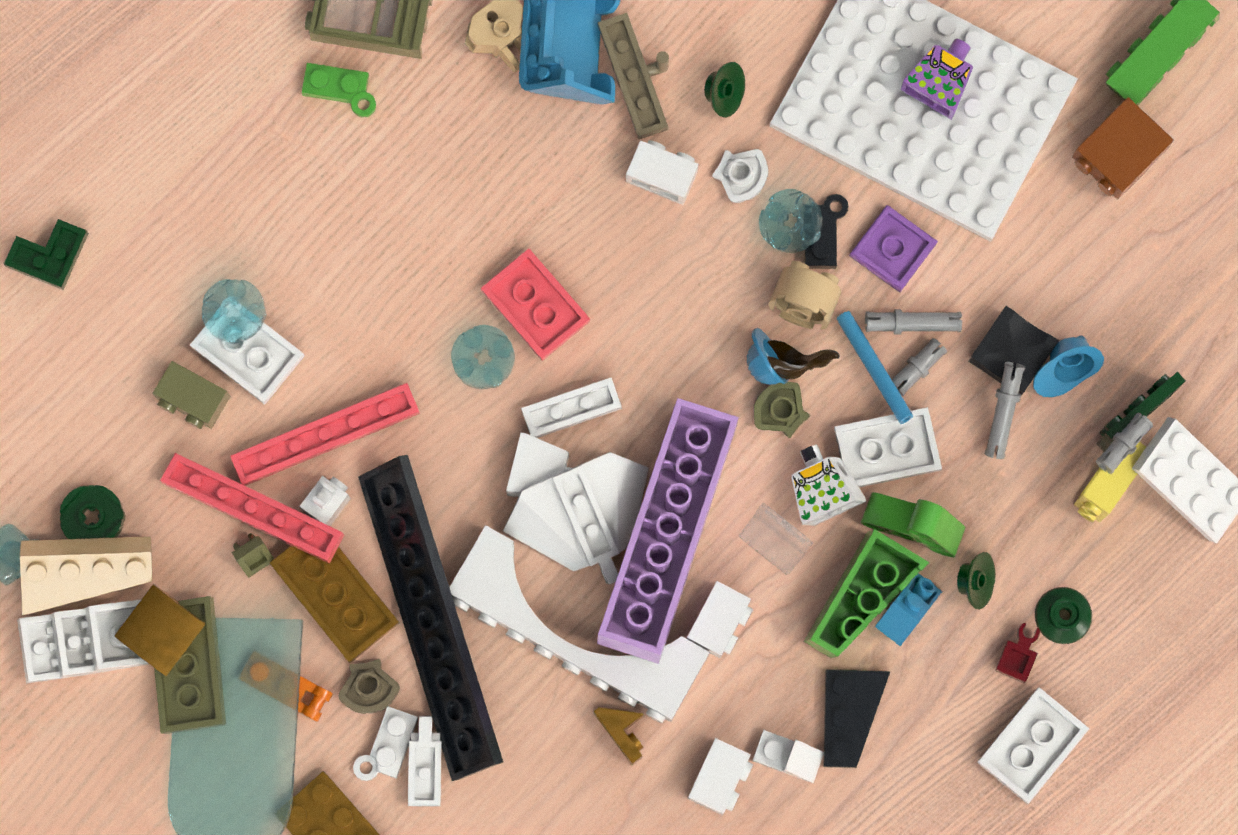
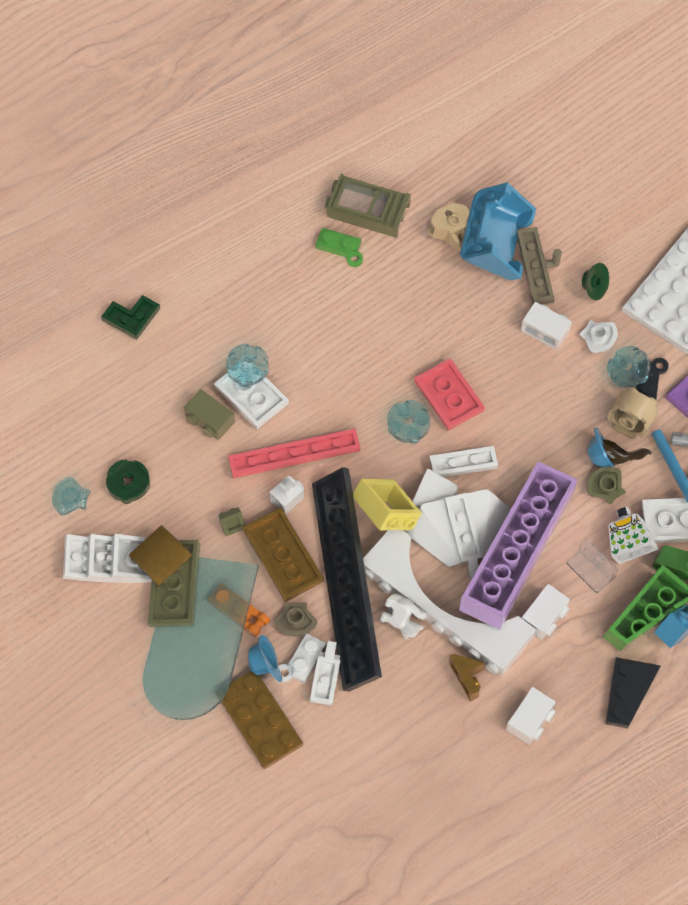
camera: 10 degrees right, 15 degrees down
(80, 569) = (113, 509): wedge -> none
(252, 508) = (237, 490): coral plate -> none
(335, 759) = (263, 659): none -> dark azure piece
(440, 495) = (373, 494): none -> light yellow window
(513, 659) = (399, 615): none -> white animal
(788, 756) = (583, 712): white slope -> none

